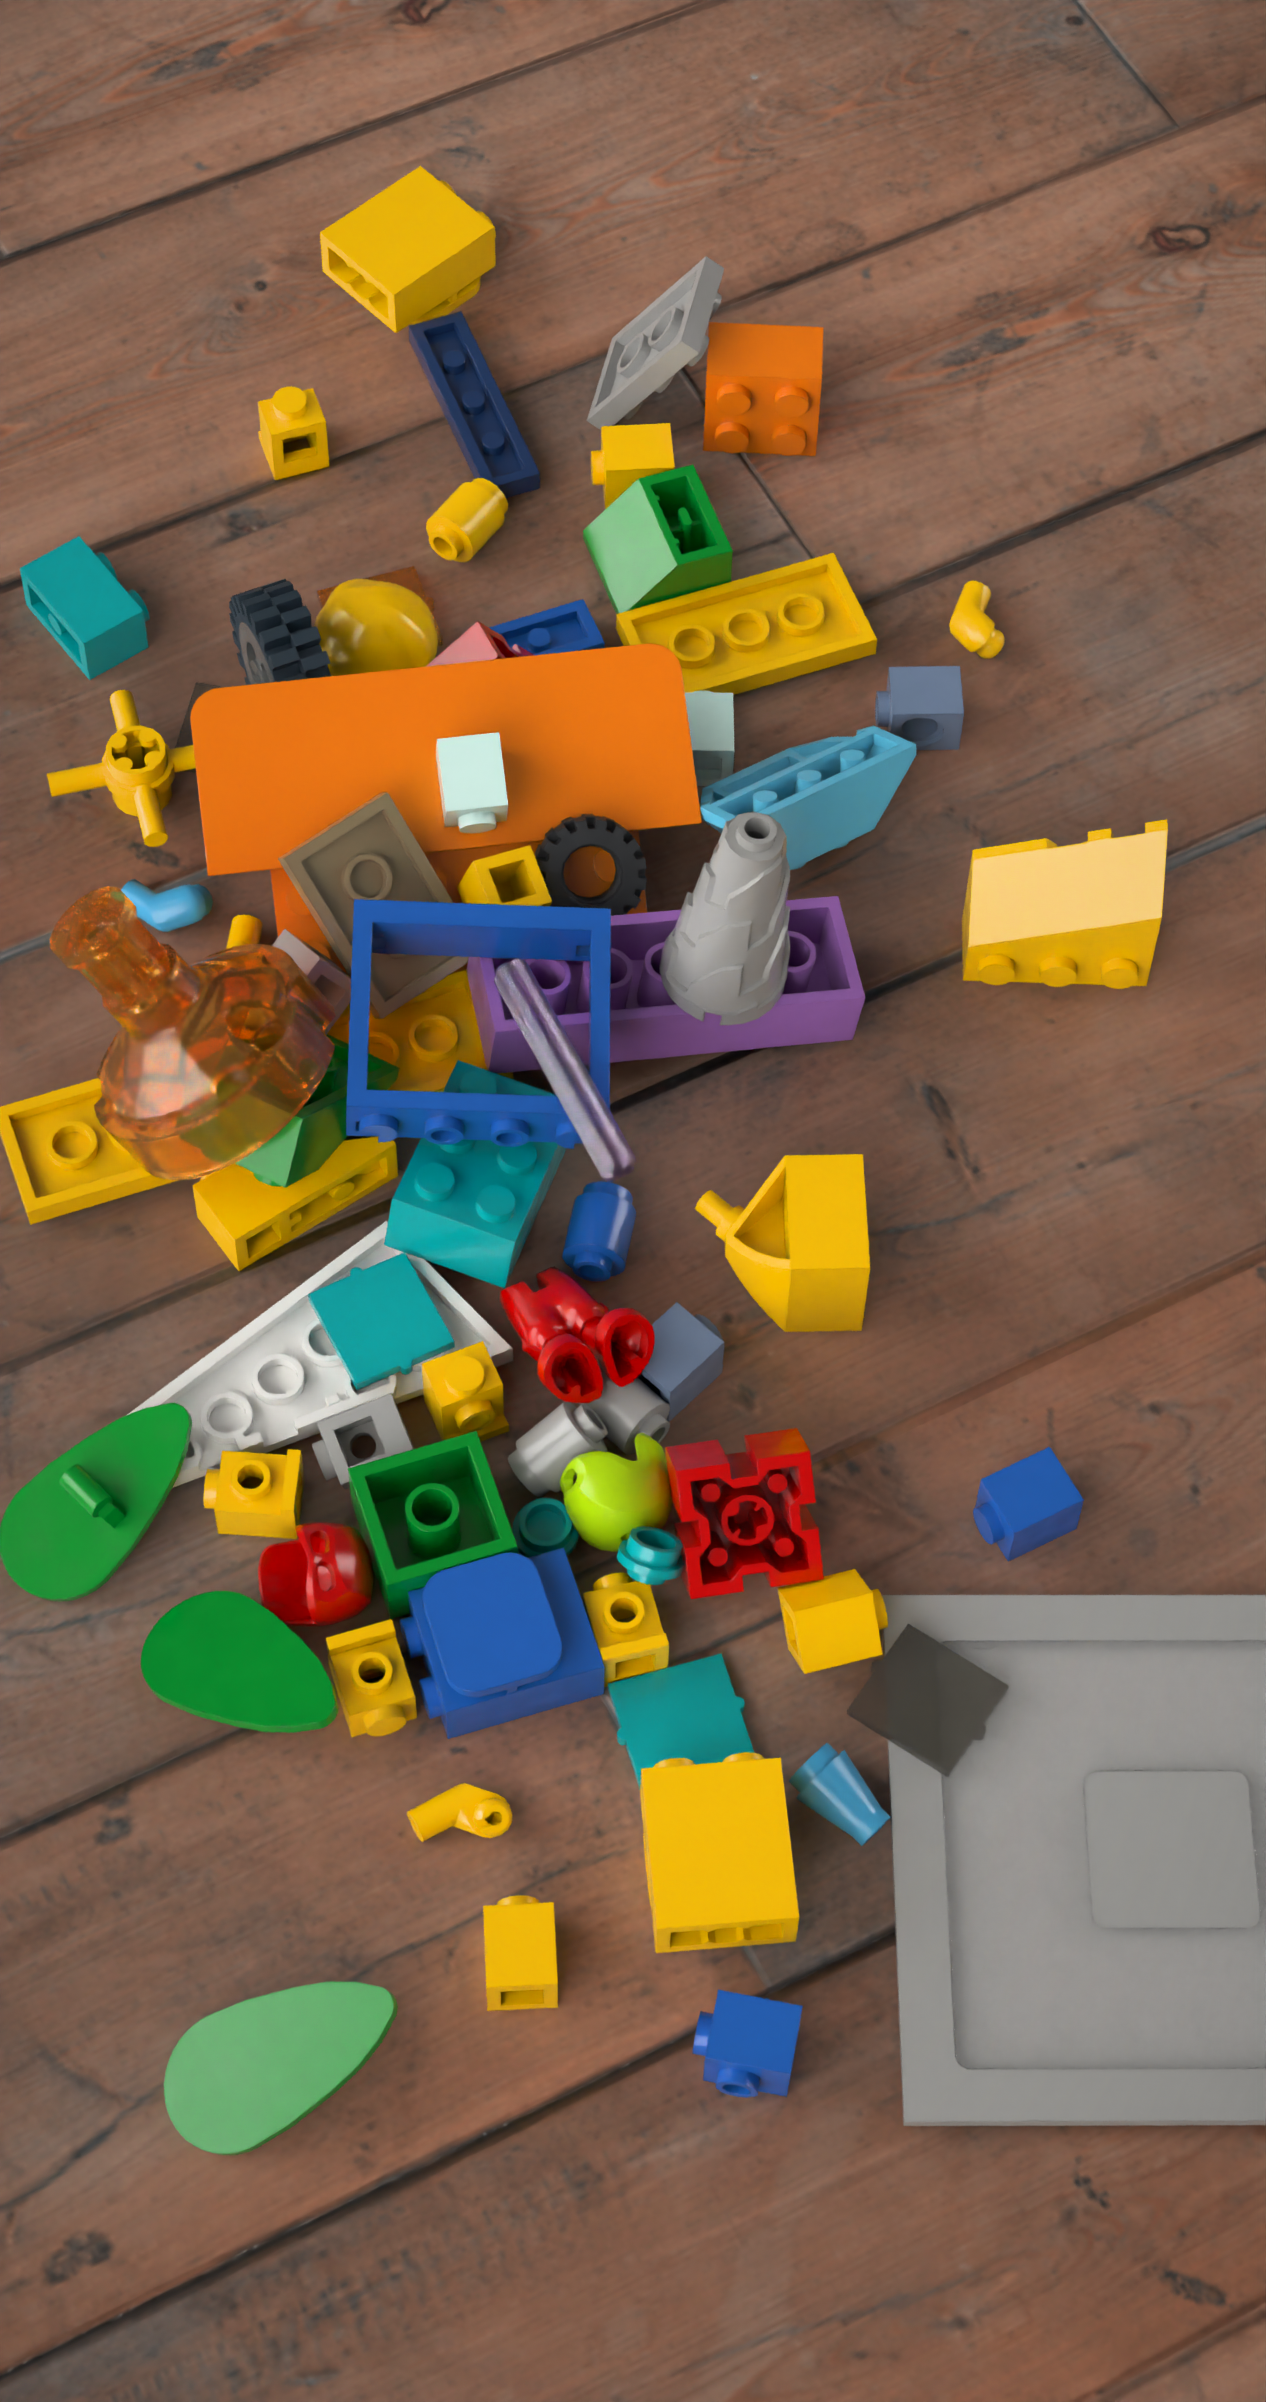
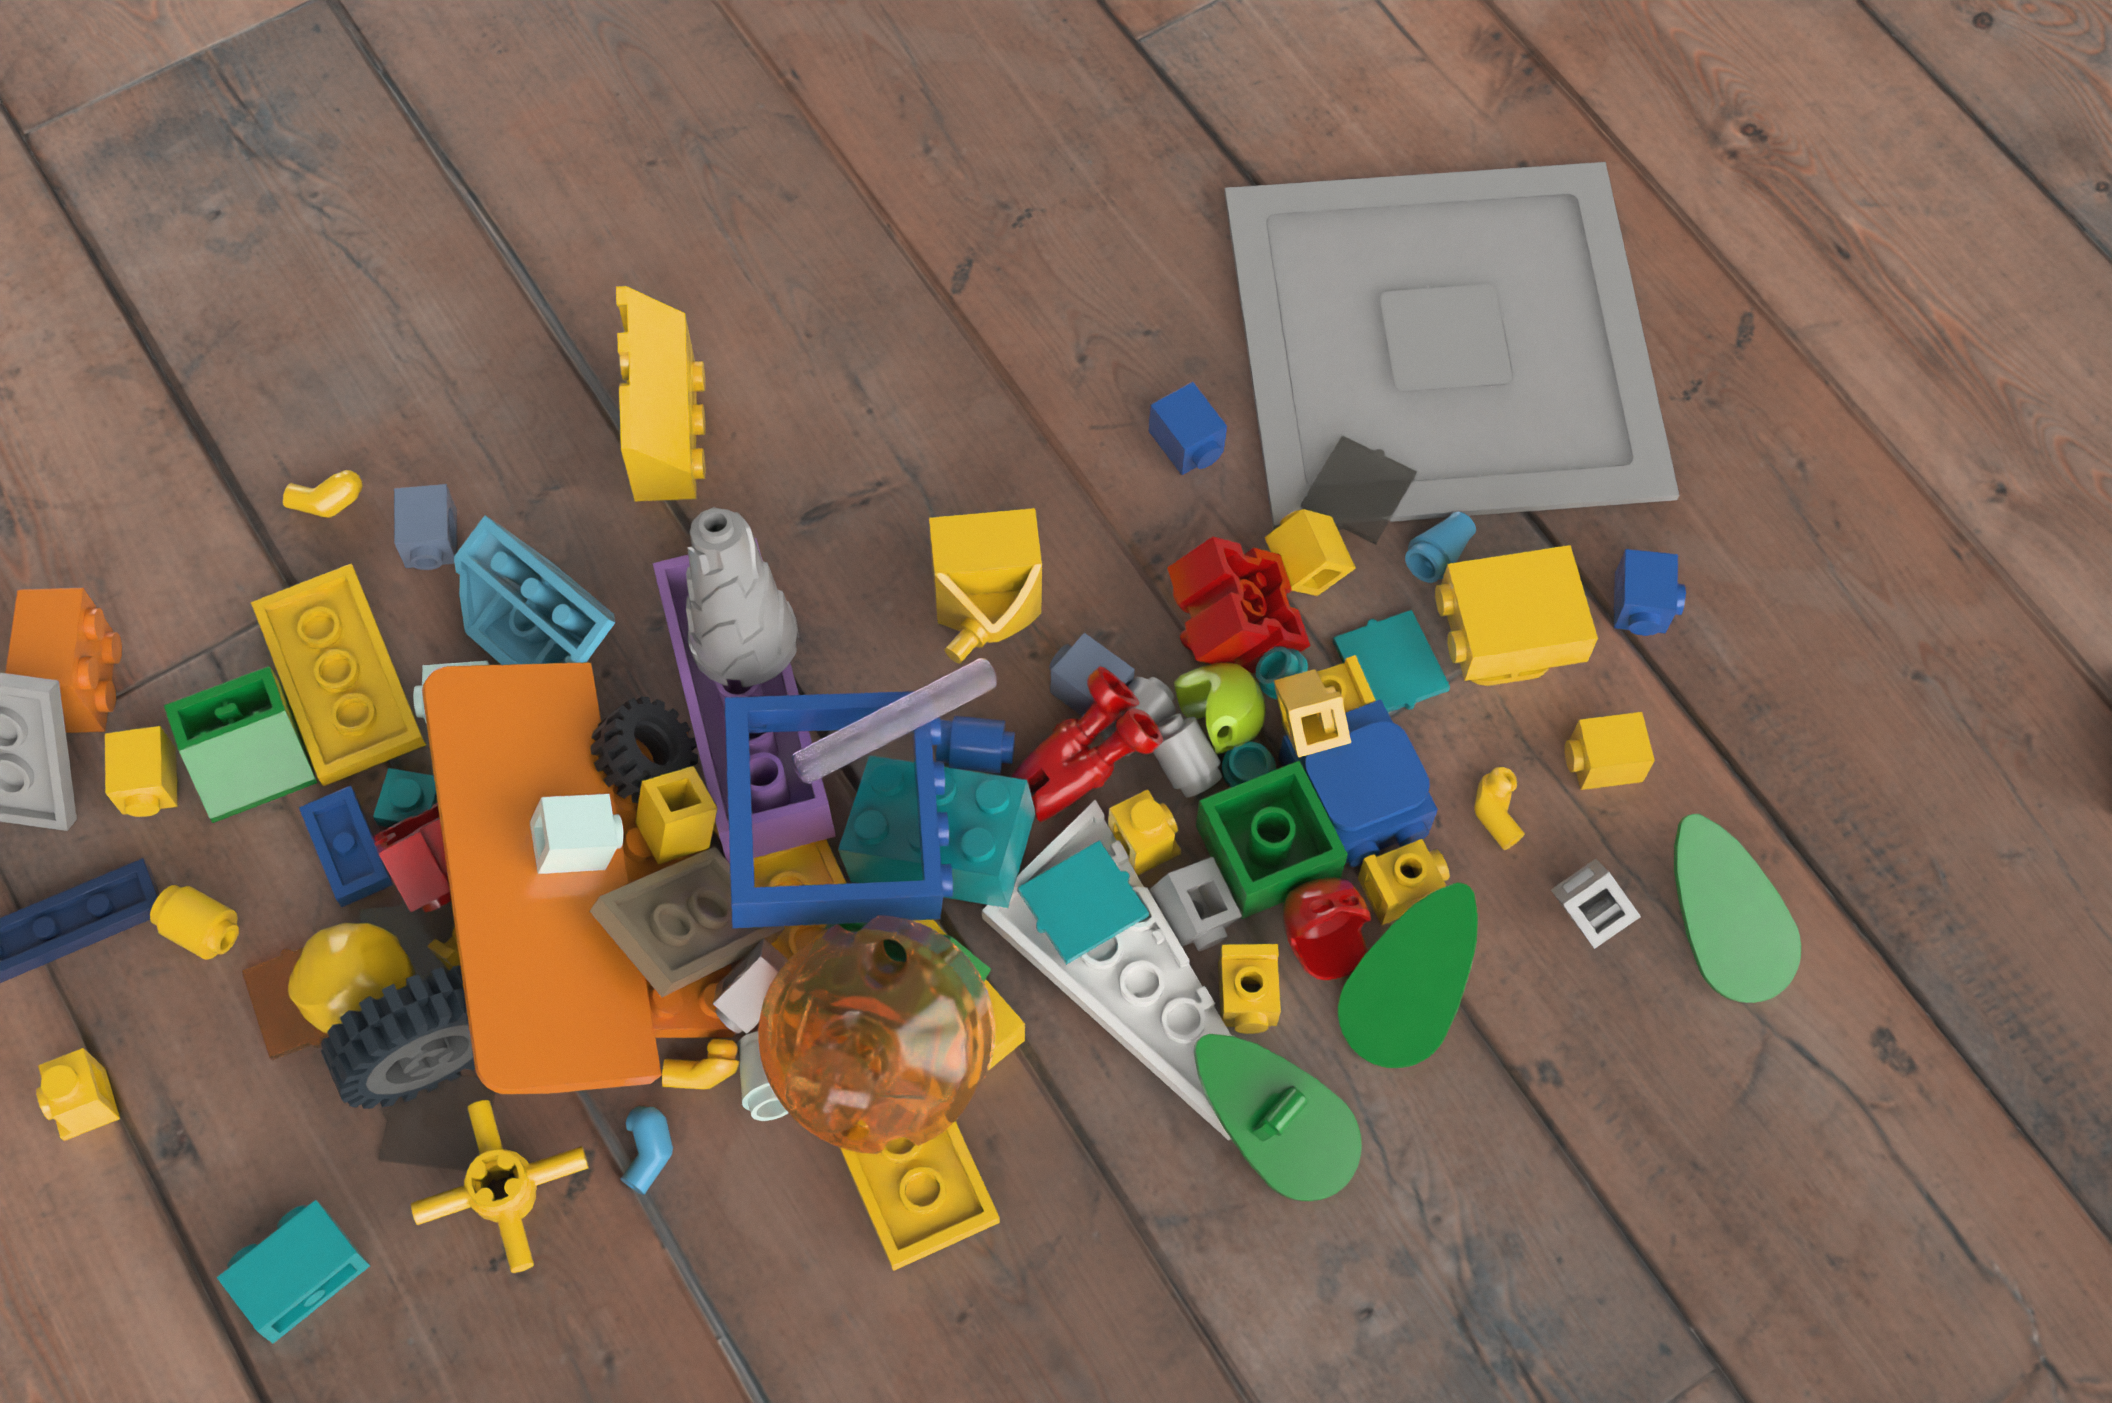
camera: 95 degrees left, 5 degrees up
(304, 1884) = (1595, 903): none -> light grey brick
(574, 1556) = (1311, 713): none -> yellow brick

